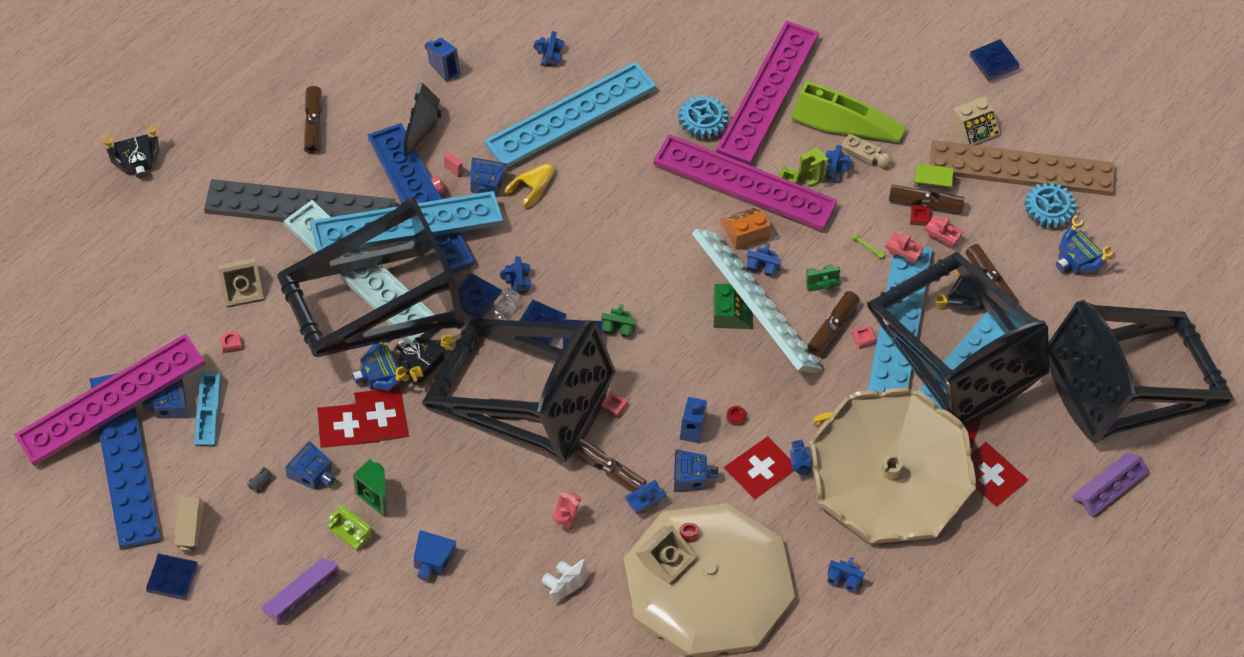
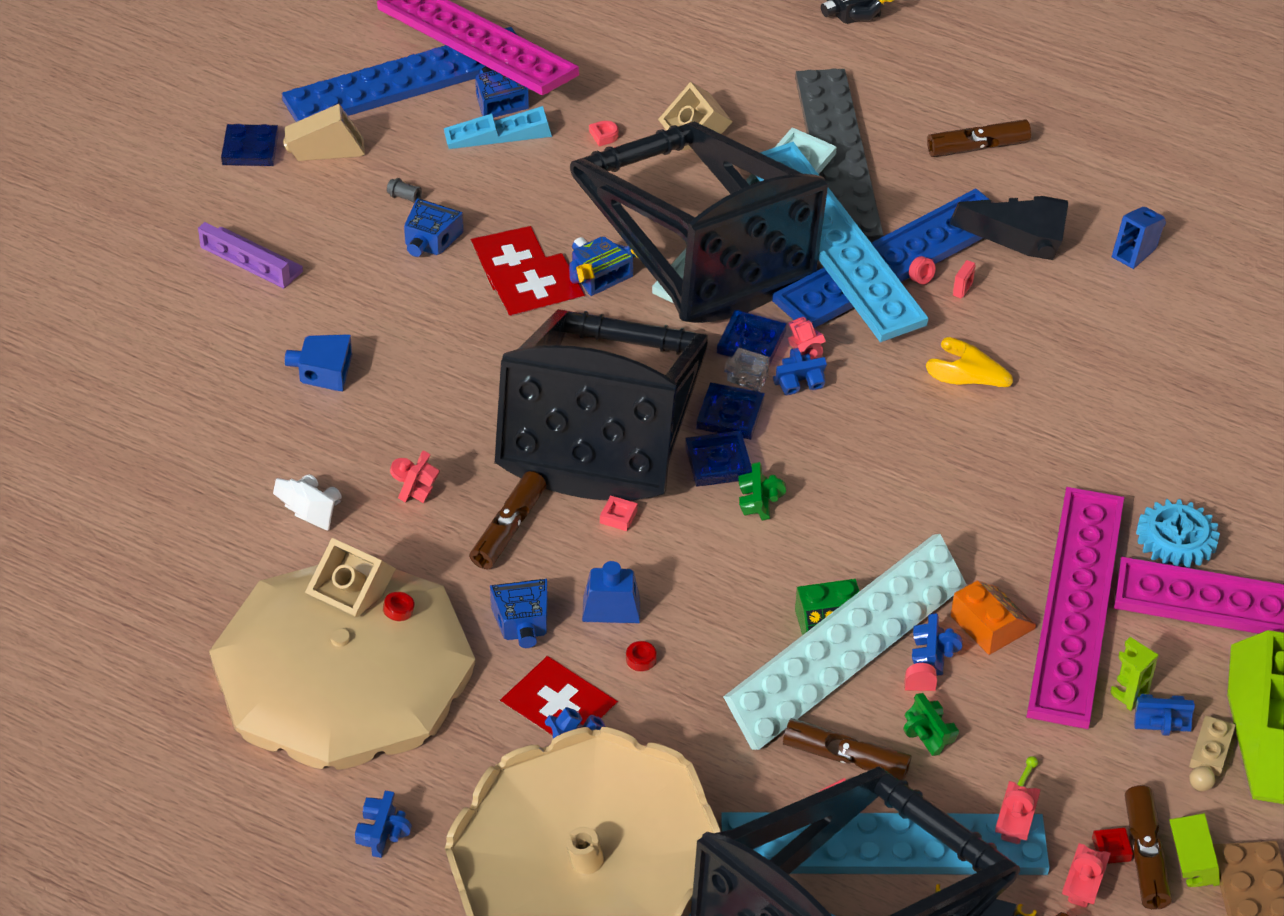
camera: 80 degrees right, 10 degrees down
(349, 527) = (351, 281): lime hinge -> none
(371, 486) = (406, 281): green slope -> none
(422, 356) = (625, 296): black torso -> none
(487, 175) = (956, 315): torso -> none
(490, 264) = (806, 338): none -> coral hips
(547, 48) = (1217, 340): blue hips -> none
(570, 115) = (1114, 389): medium azure plate -> none
(645, 496) = (462, 562): blue hips -> none
(786, 274) = (920, 677): none -> coral tile
(789, 174) = (1109, 656): lime slope -> none

